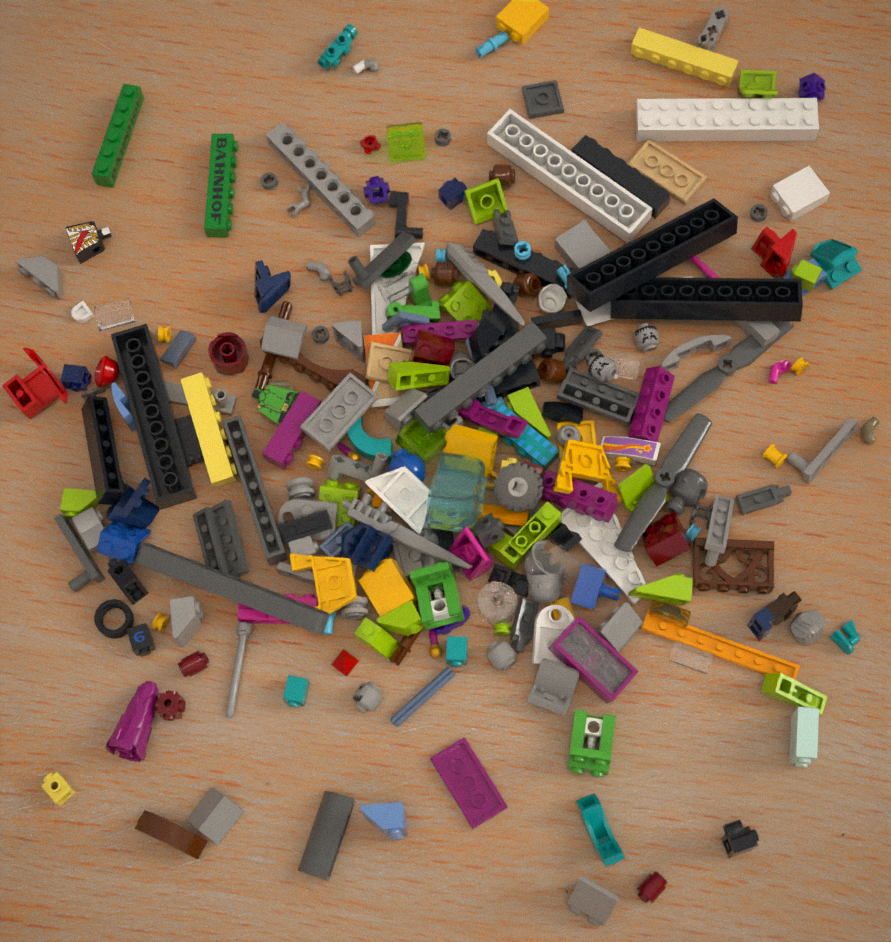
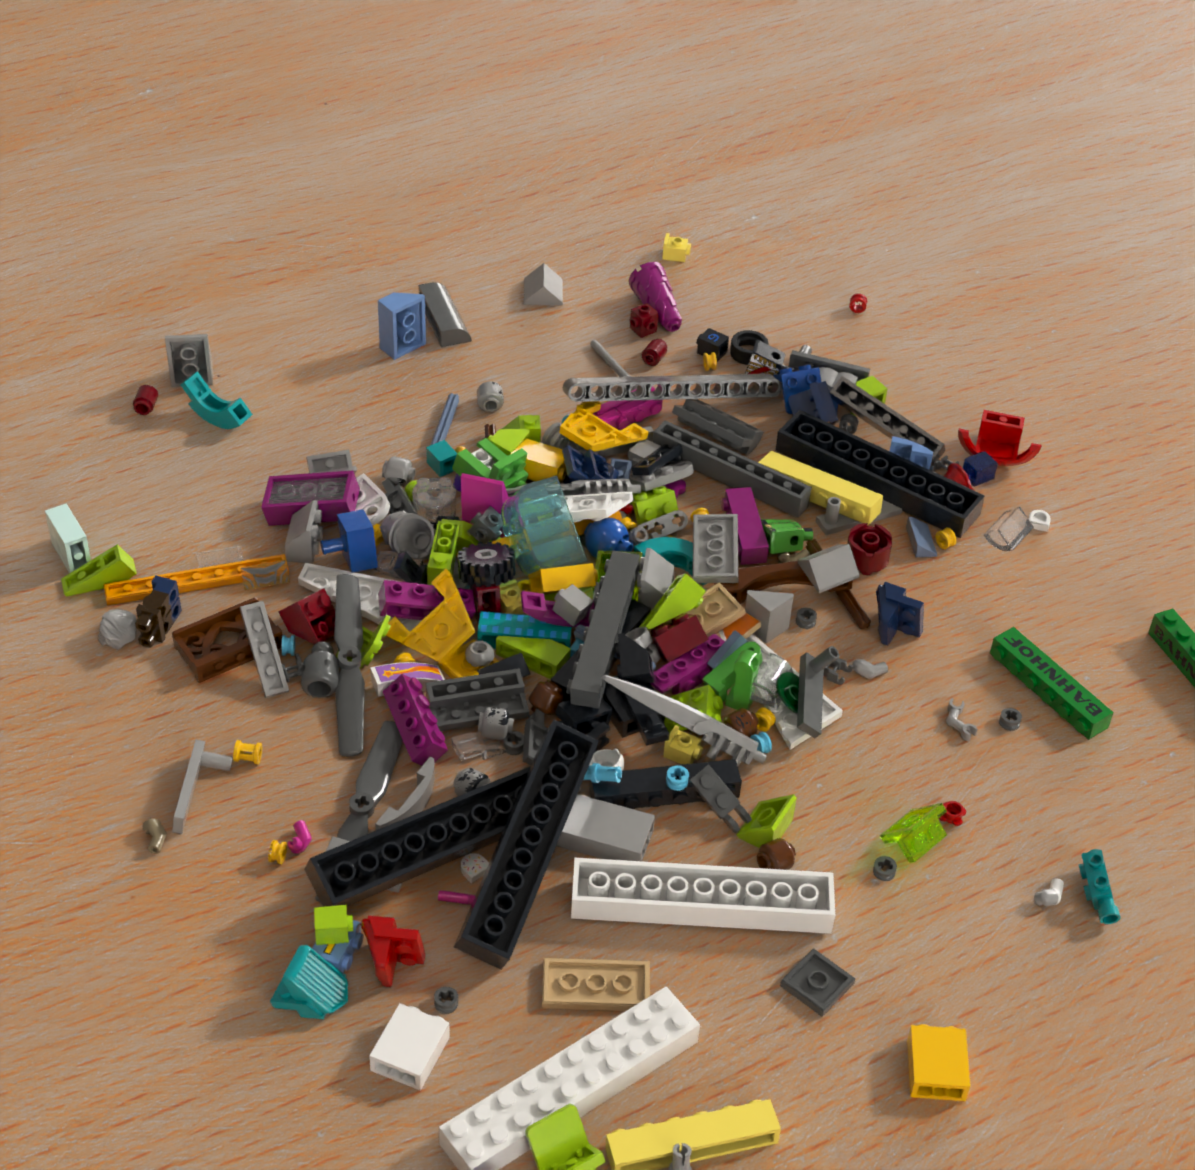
camera: 135 degrees right, 25 degrees down
(43, 274) = (1106, 524): light grey slope -> none
(87, 240) = (1109, 568): torso -> none
(171, 834) = (563, 252): reddish brown arch -> none
(185, 618) = (692, 357): light grey slope -> none
(296, 691) = (553, 373): teal brick -> none
(300, 488) = (691, 490): light grey wheel -> none
(345, 662) = (533, 409): red slope -> none
(357, 223) = (962, 744): light grey brick -> none
(376, 196) = (891, 761): dark purple brick -> none
(400, 201) = (841, 758): black beam -> none
(452, 193) = (812, 809): clear blue brick -> none
(468, 783) = (356, 394): magenta tile -> none
(487, 412) = (572, 605): none -> light grey brick
(491, 44) = (940, 1004): medium azure pin -> none
(528, 283) = (643, 757): reddish brown head -> none
(588, 759) = (266, 450): bright green brick -> none
(622, 174) = (645, 937): black brick -> none
(672, 590) = (281, 581): lime slope -> none
(739, 838) = (85, 447): black hinge -> none
(762, 498) = (235, 710): dark grey hinge -> none
(844, 644) = (66, 637): teal piece -> none

